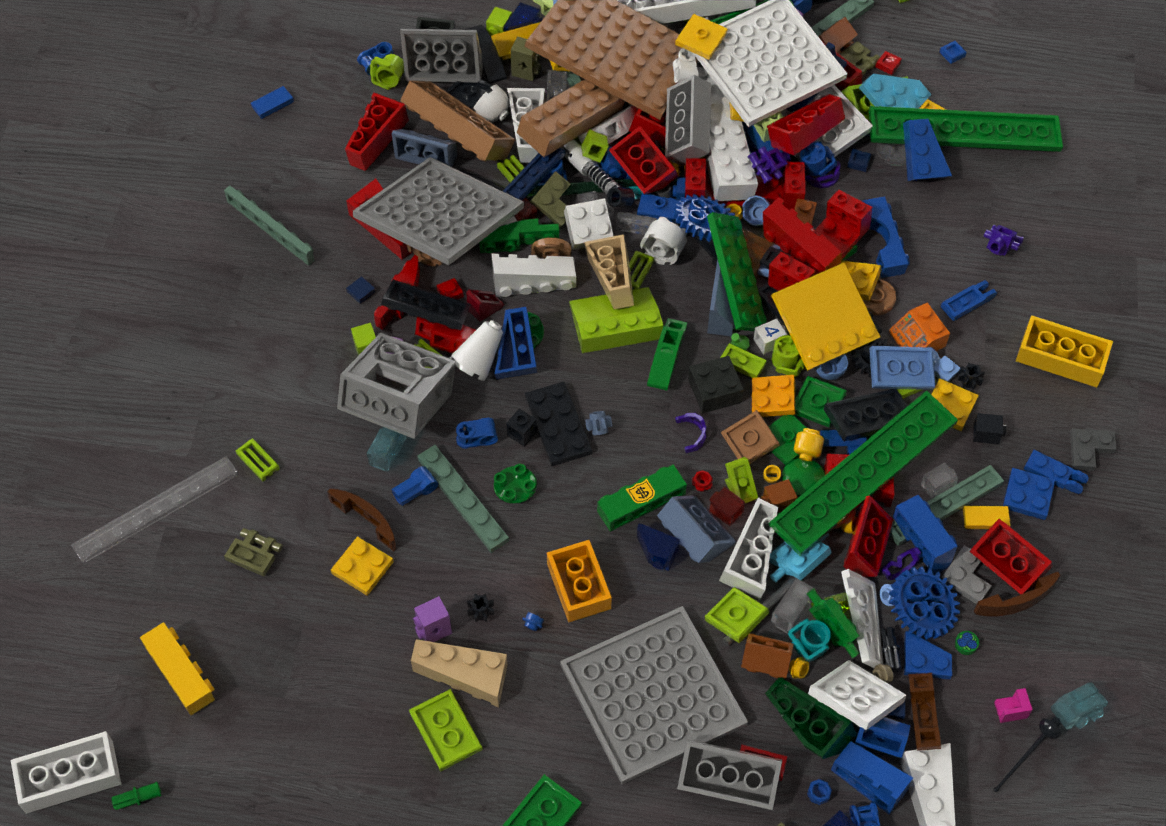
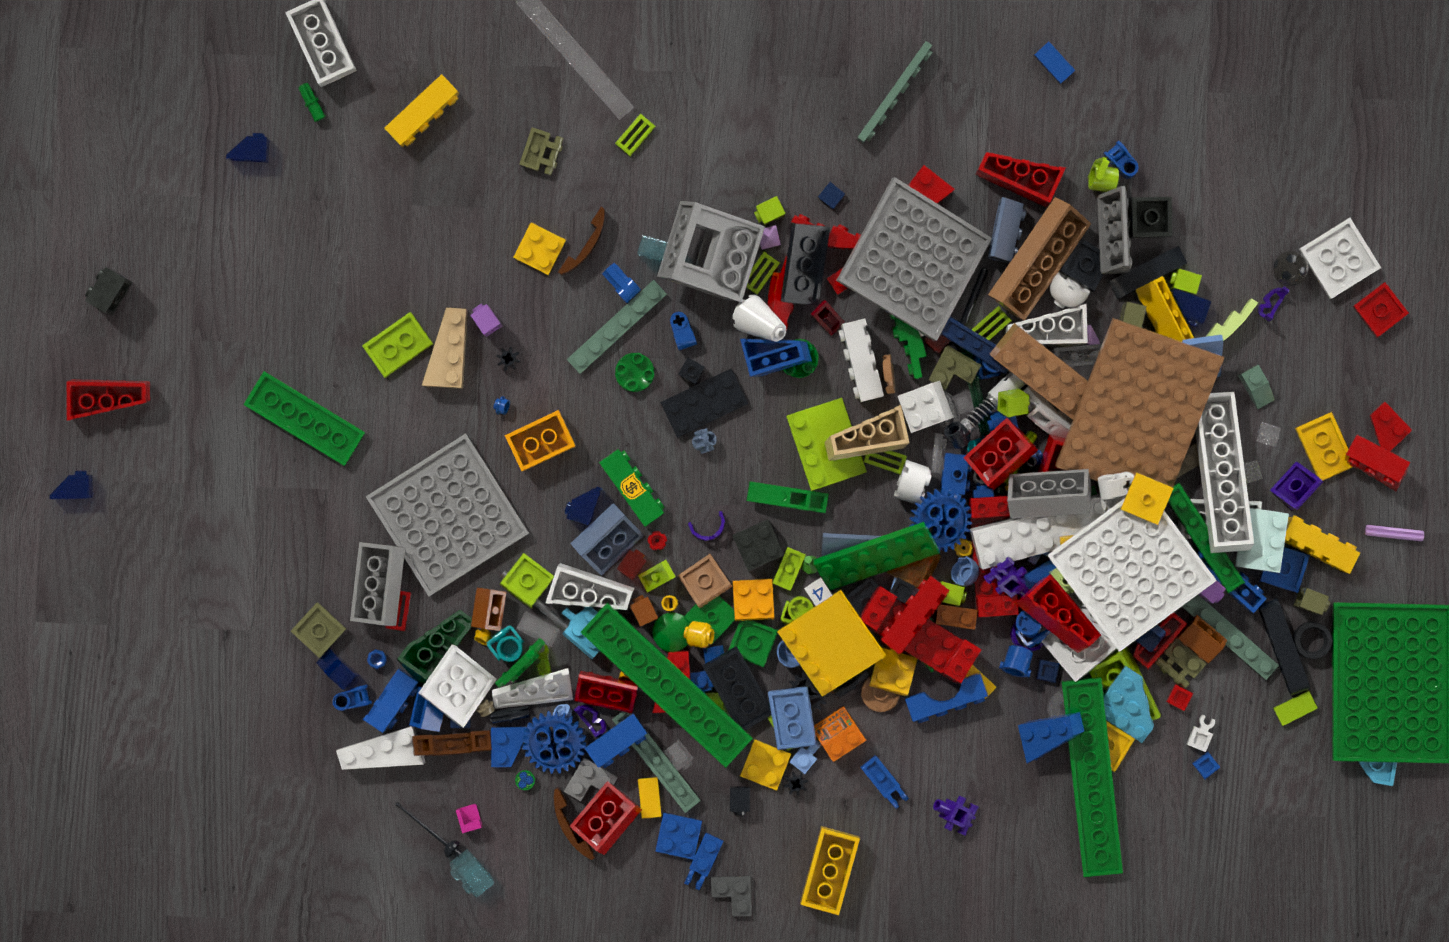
camera: 85 degrees right, 30 degrees up
(850, 176) = (1017, 661): none -> blue piece
(925, 51) = (1200, 736): none -> white plate

